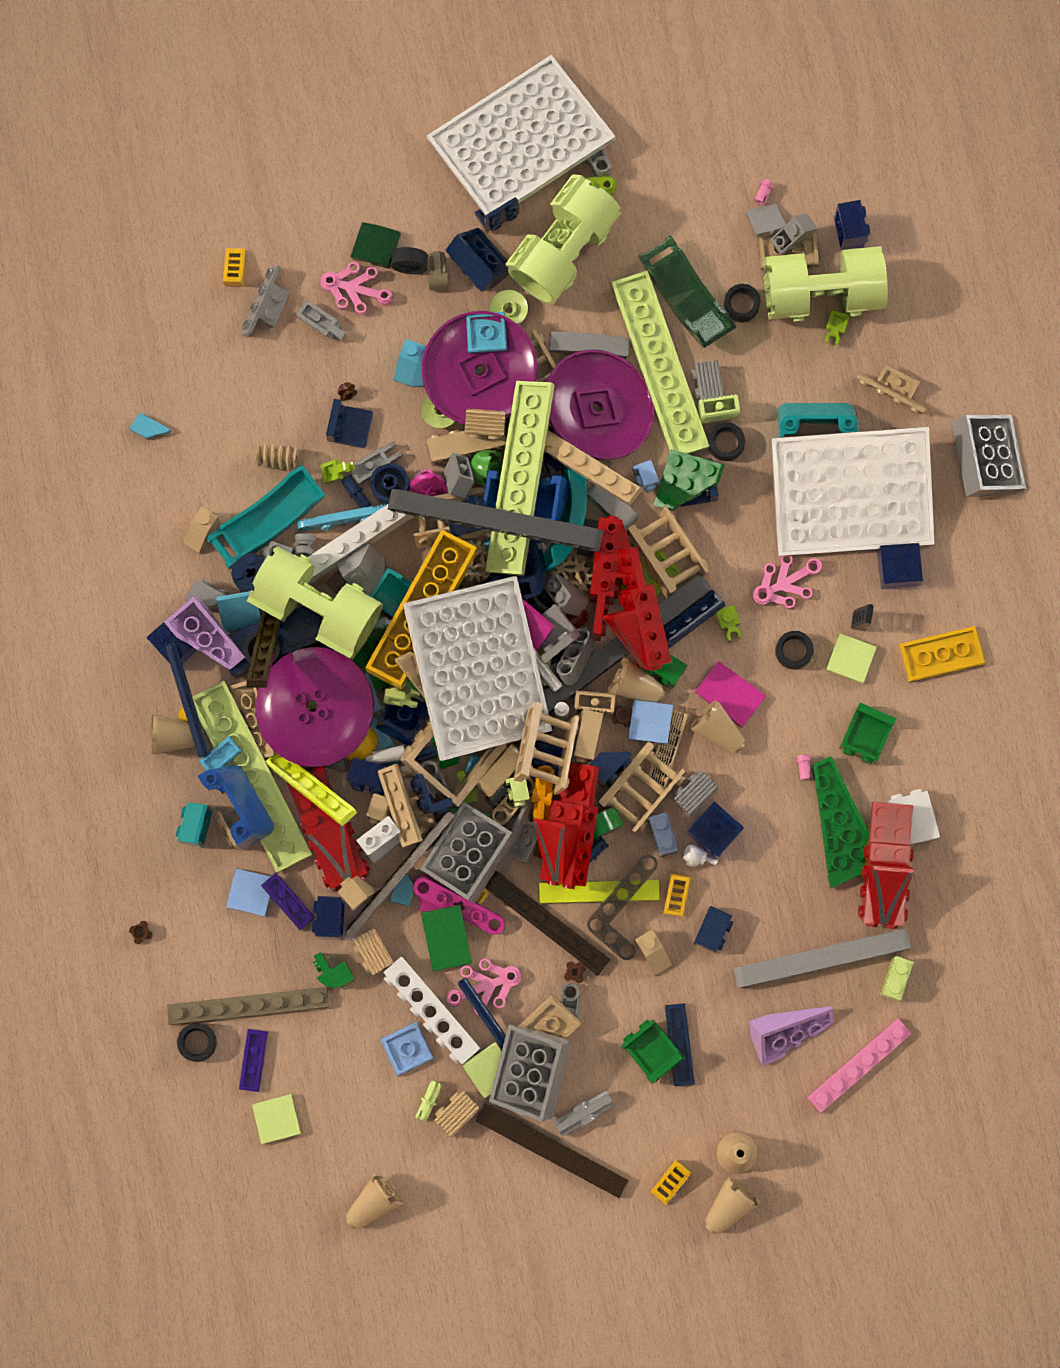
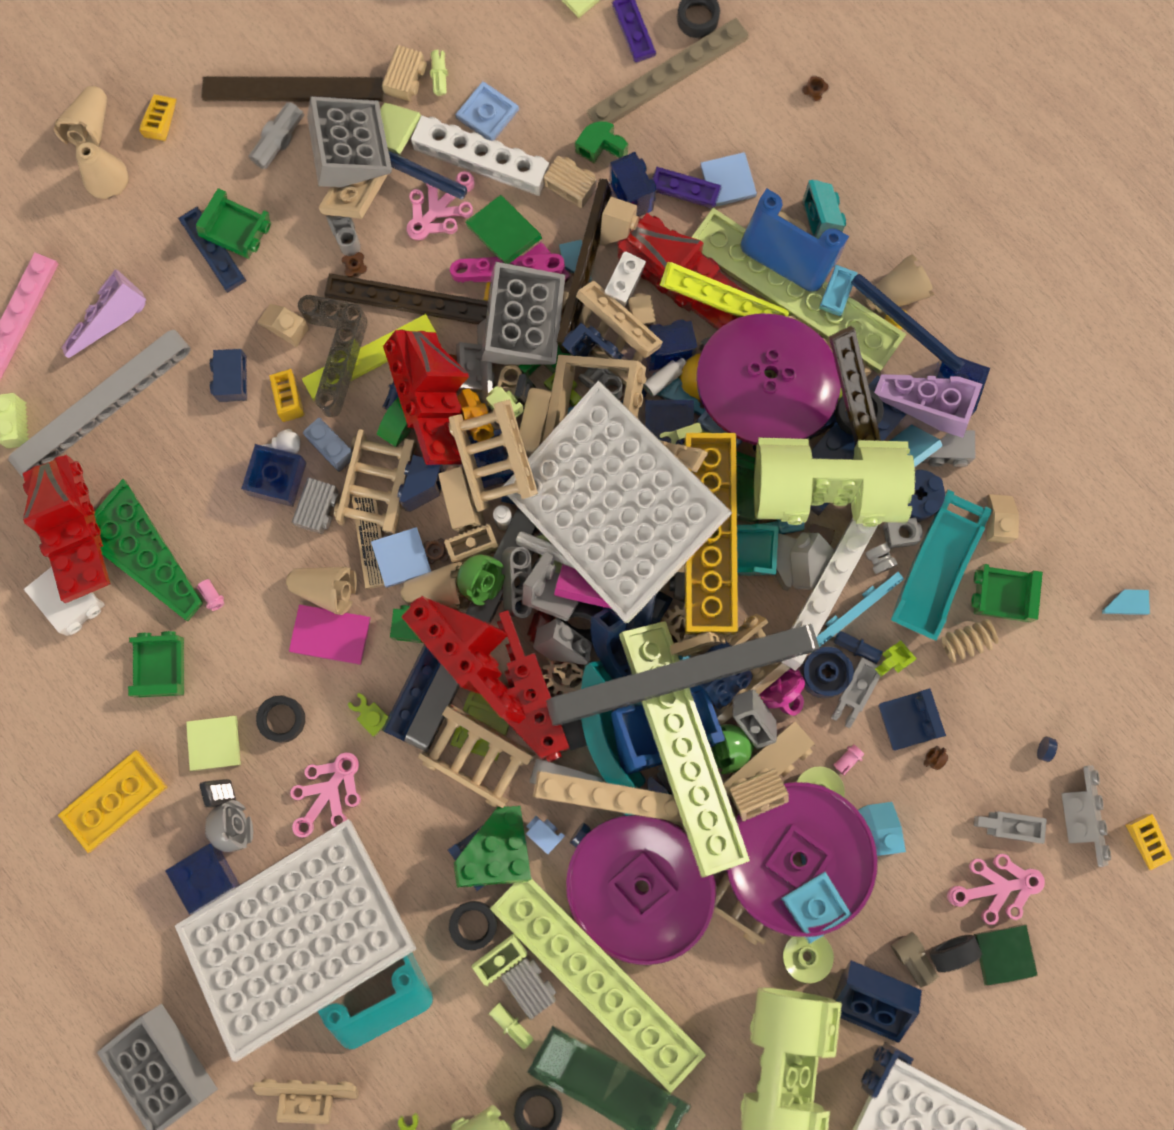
camera: 150 degrees right, 0 degrees up
(229, 476) = (1007, 593): none -> green panel
(267, 359) = (1047, 749): none -> dark blue tile
(407, 421) = (849, 759): none -> bright pink pin
(474, 540) = (697, 644): none -> tan tile
(573, 342) = (696, 960): light grey slope -> none
(602, 670) = (480, 578): none -> bright green cylinder
(621, 464) = (580, 833): none -> dark blue tile
(733, 365) = (511, 1026): none -> yellowish green axle
(866, 589) = (228, 827): none -> light grey cylinder

